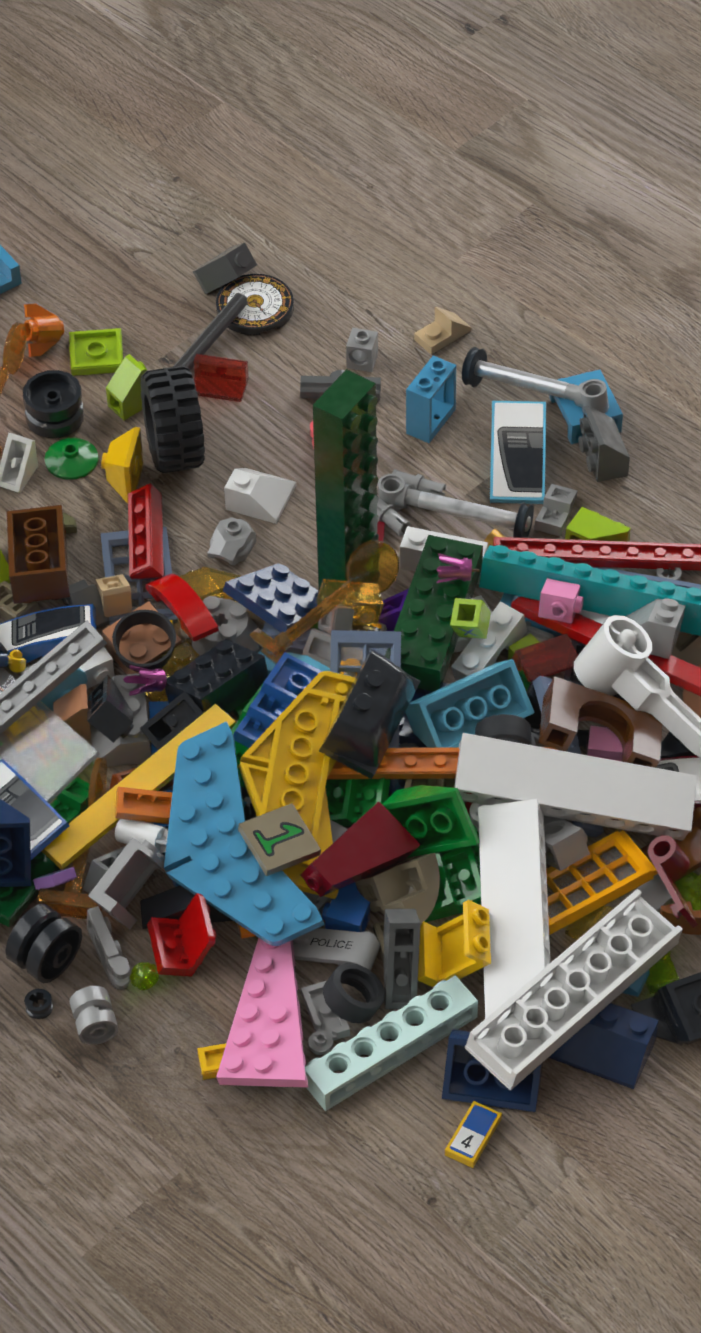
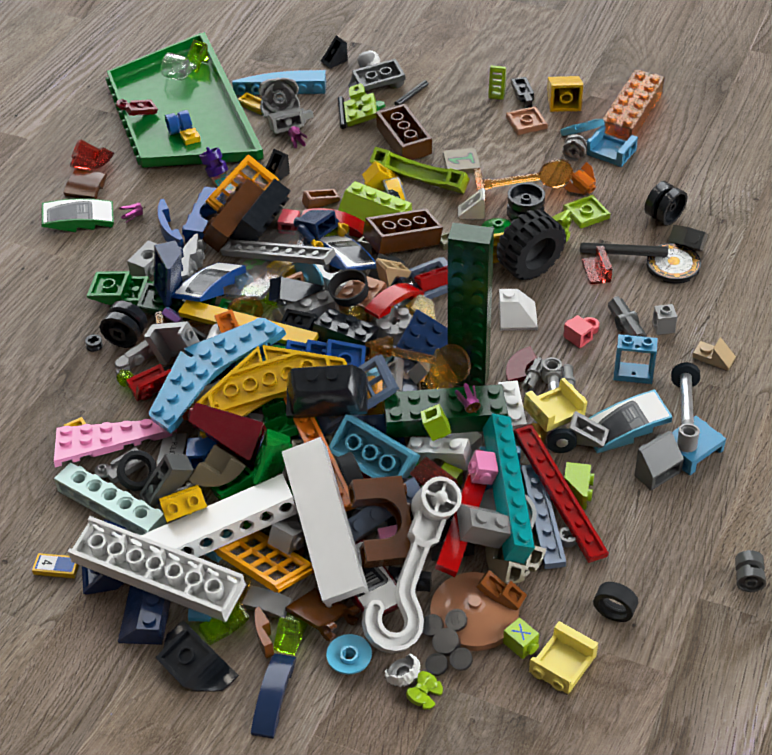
camera: 70 degrees right, 5 degrees down
(93, 1015) = (93, 362): light grey wheel -> none
(152, 260) = (665, 203): none -> black wheel
(153, 679) = (327, 301): flat silver piece -> none
(279, 839) = (213, 385): dark tan tile -> none
(474, 501) = (555, 406): none -> light yellow panel
(519, 490) = (588, 431): none -> light grey slope
(555, 510) = (597, 457): light grey slope -> none
(671, 865) = (284, 594): dark red door -> none

